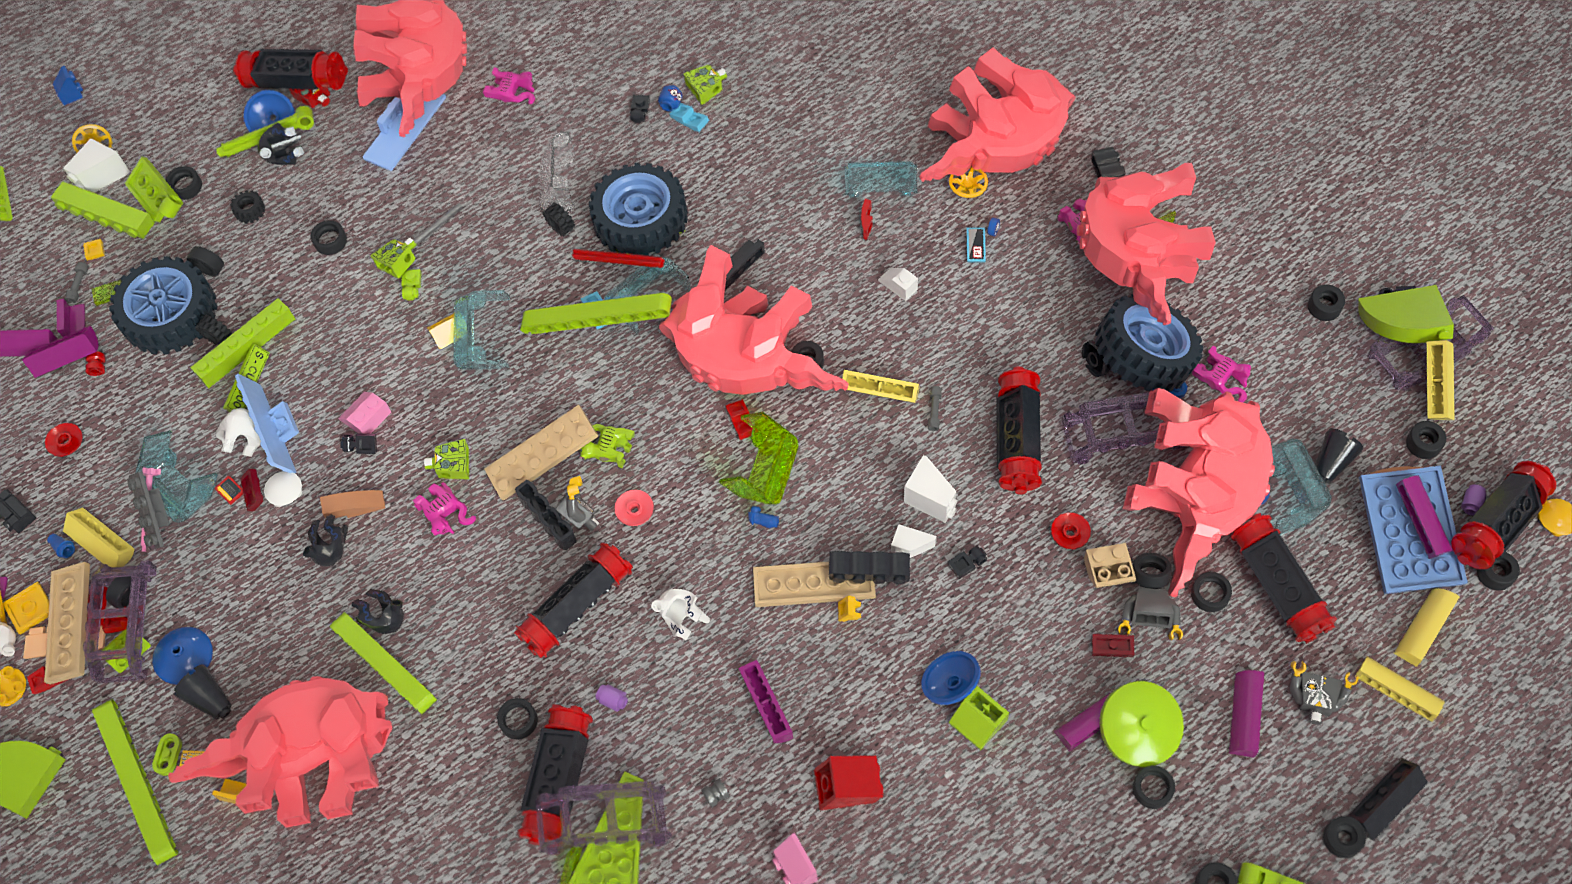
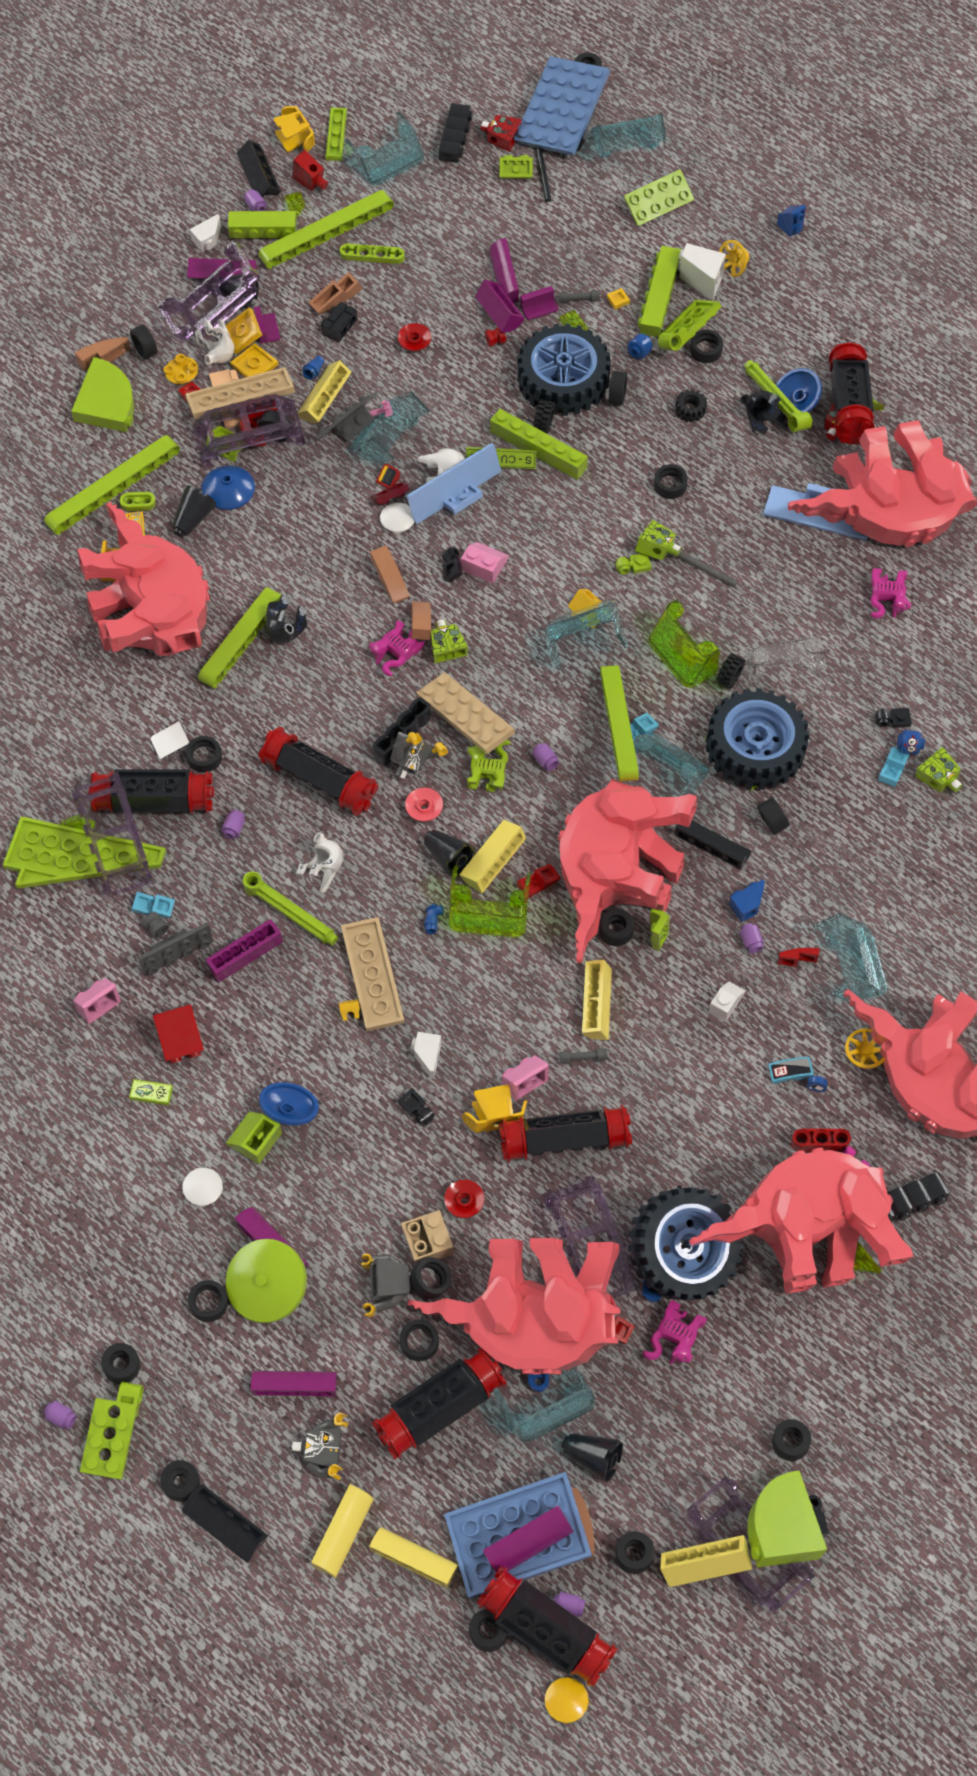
camera: 75 degrees right, 0 degrees up
(161, 237) = (640, 346): none -> blue head
(322, 552) = (341, 567): black piece -> none
(419, 478) = (420, 620): none -> nougat slope
(490, 753) = (169, 740): none -> white sticker
(522, 255) = (679, 652): none -> clear neon green windscreen
(607, 391) = (545, 756): none -> medium lavender brick
(618, 258) = (692, 732): red axle -> none
(688, 794) = (147, 904): none -> medium azure slope
(693, 491) = (449, 851): none -> black cone
(704, 452) = (493, 856): none -> light yellow brick
(720, 212) = (773, 815): none -> black tyre
(723, 654) = (288, 908): none -> lime piece
(745, 778) = (175, 947): none -> dark grey bracket
(802, 246) = (747, 902): none -> blue slope
(820, 318) = (659, 927): none -> lime bracket
(839, 252) = (752, 938): none -> medium lavender brick
(871, 566) = (390, 1015): black brick -> none
(910, 821) = (151, 1092): none -> tile
(930, 491) = (482, 1059): white slope -> none
(952, 456) = (526, 1076): none -> bright pink slope
(980, 486) = (491, 1106): none -> yellow piece
(1025, 779) = (202, 1186): none -> white dish
(1049, 226) = (828, 1135): none -> red beam
(1113, 645) = (347, 1251): dark red plate -> none

